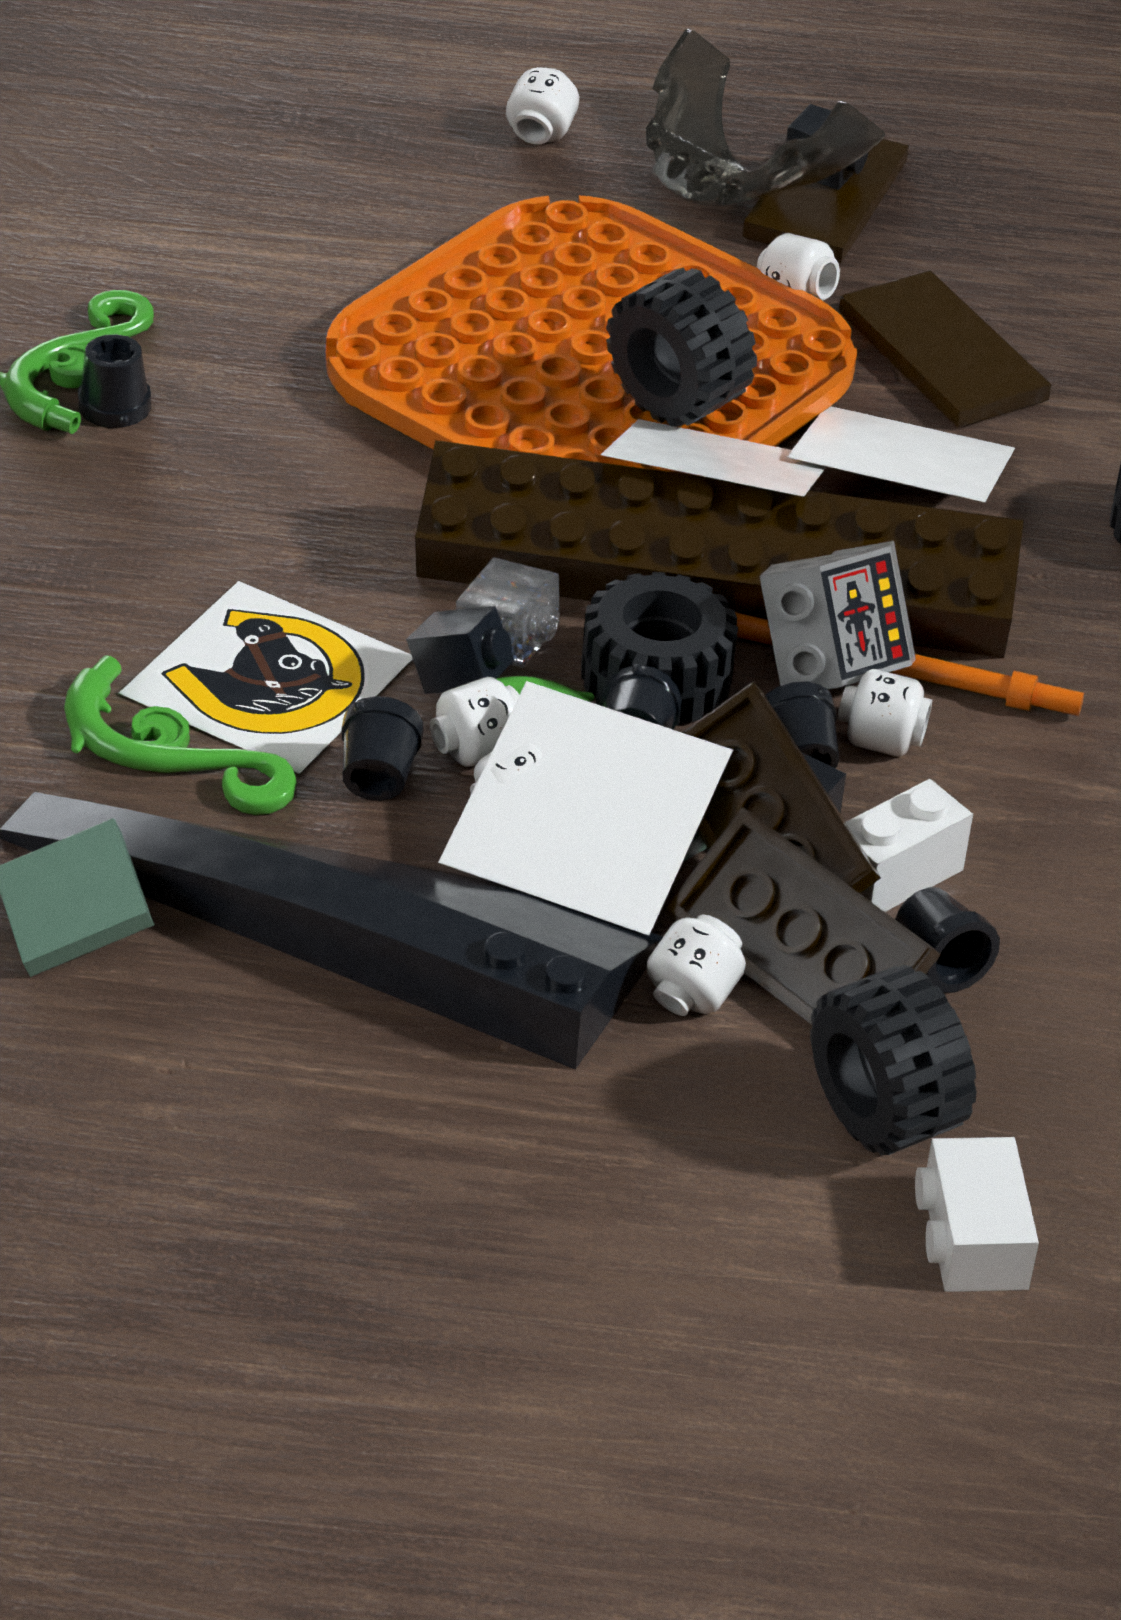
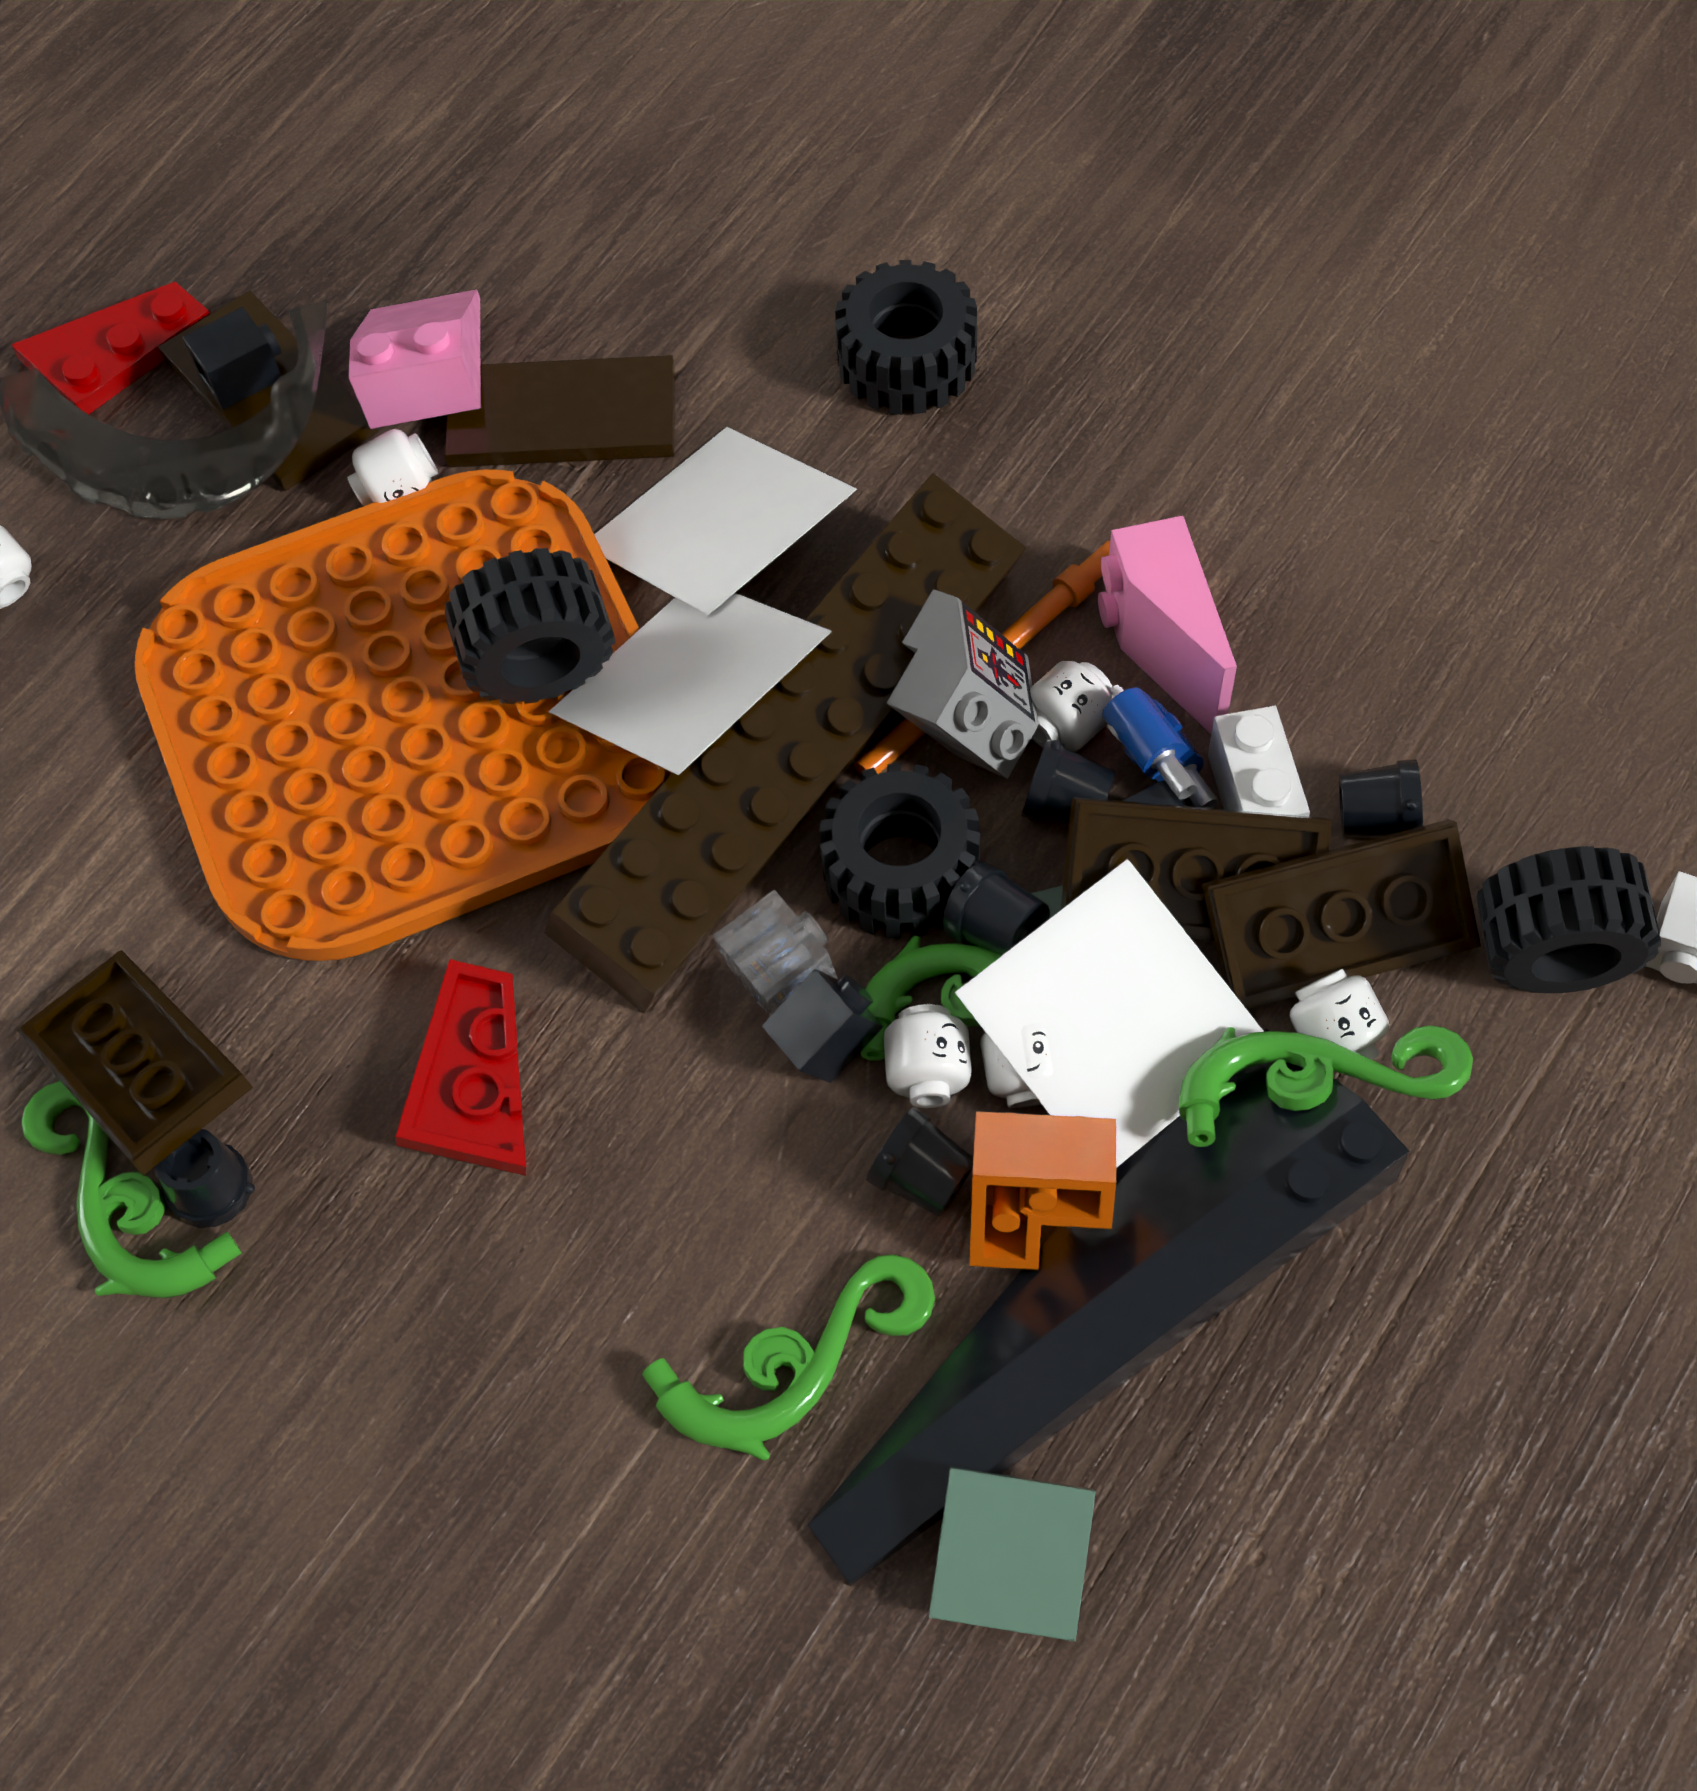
camera: 55 degrees left, 20 degrees up
(178, 309) = (134, 1061): none -> dark brown tile
(267, 675) = (725, 1219): sticker -> none
(291, 489) = (467, 1074): none -> red wing
(388, 785) = (1034, 1175): none -> orange brick
(638, 939) = (1305, 1089): none -> bright green plant
(777, 94) = (111, 347): none -> red wing
(884, 753) = (1157, 744): none -> blue piece
(910, 241) = (418, 359): none -> bright pink slope
(1026, 727) = (1168, 616): none -> bright pink slope

